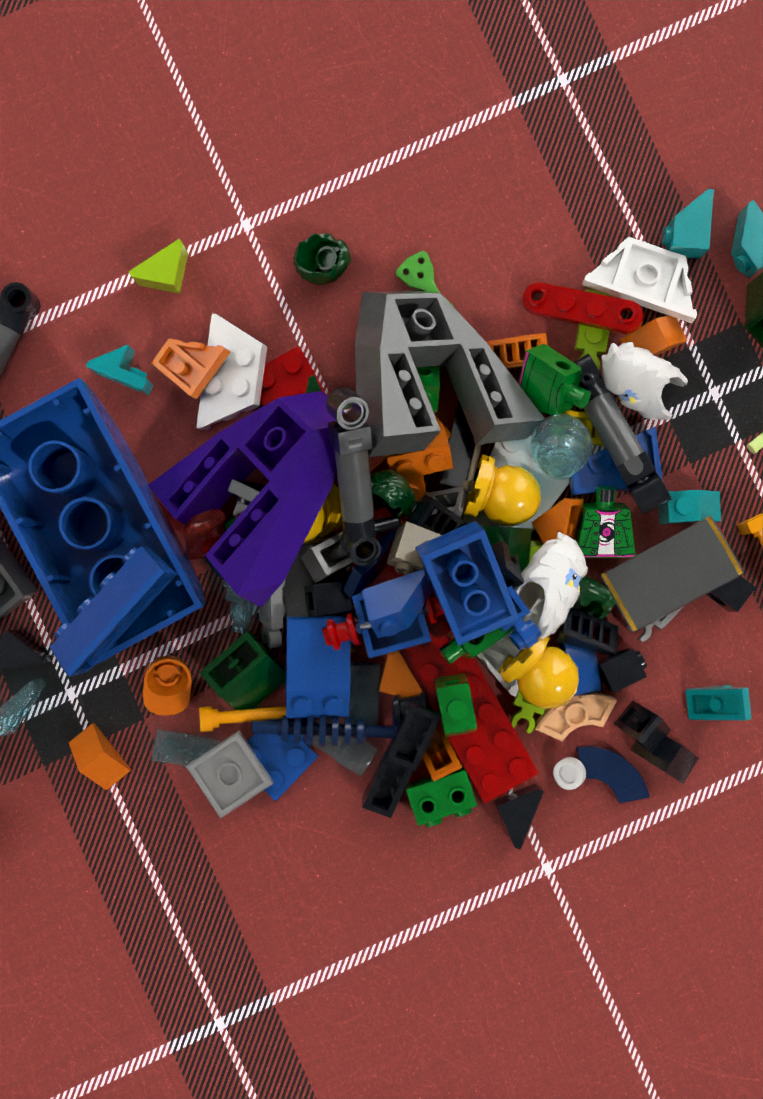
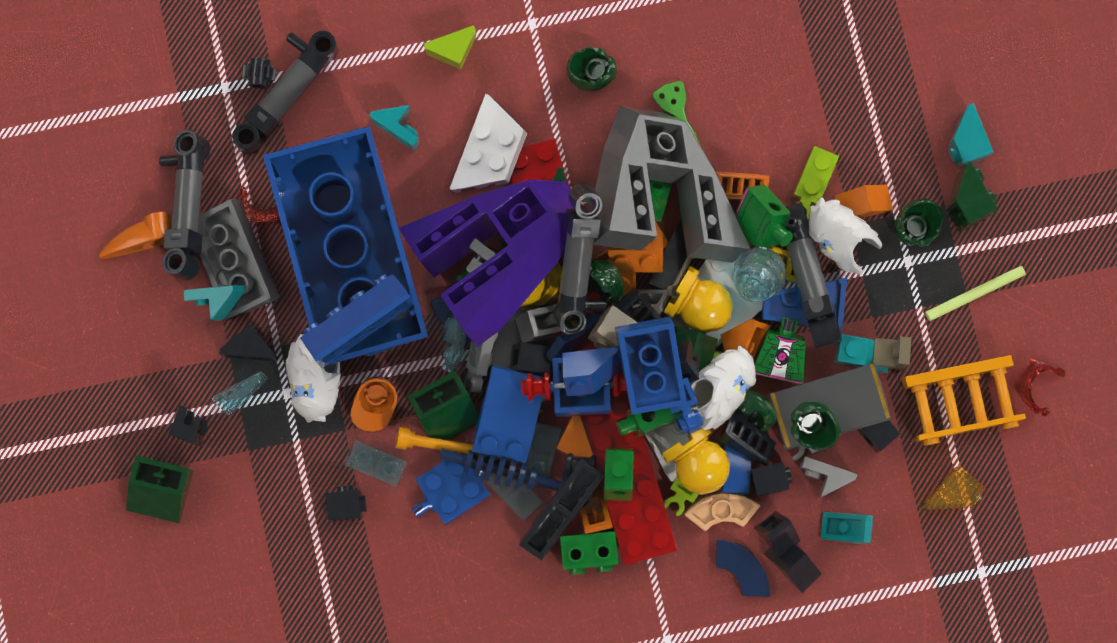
camera: 10 degrees right, 5 degrees down
(97, 692) = (312, 387): none -> white head
(97, 757) = (299, 453): orange slope -> none
(160, 804) = (345, 504): none -> black brick
(190, 364) = (457, 133): orange wing -> none
(197, 530) = (433, 275): clear red helmet -> none
(229, 774) = (411, 489): light grey tile -> none
(518, 812) = (651, 582): black slope -> none
(569, 773) = (705, 559): white tile -> none
(583, 308) = (806, 161): red plate -> none
(646, 276) = (868, 148): white wing -> none
(664, 603) = (815, 426): none -> dark green hair
(690, 652) = (834, 476): none -> light grey slope
(691, 228) = (915, 114): teal slope -> none
(721, 347) = (919, 222): none -> dark green hair
(729, 498) = (892, 353): none -> dark tan slope

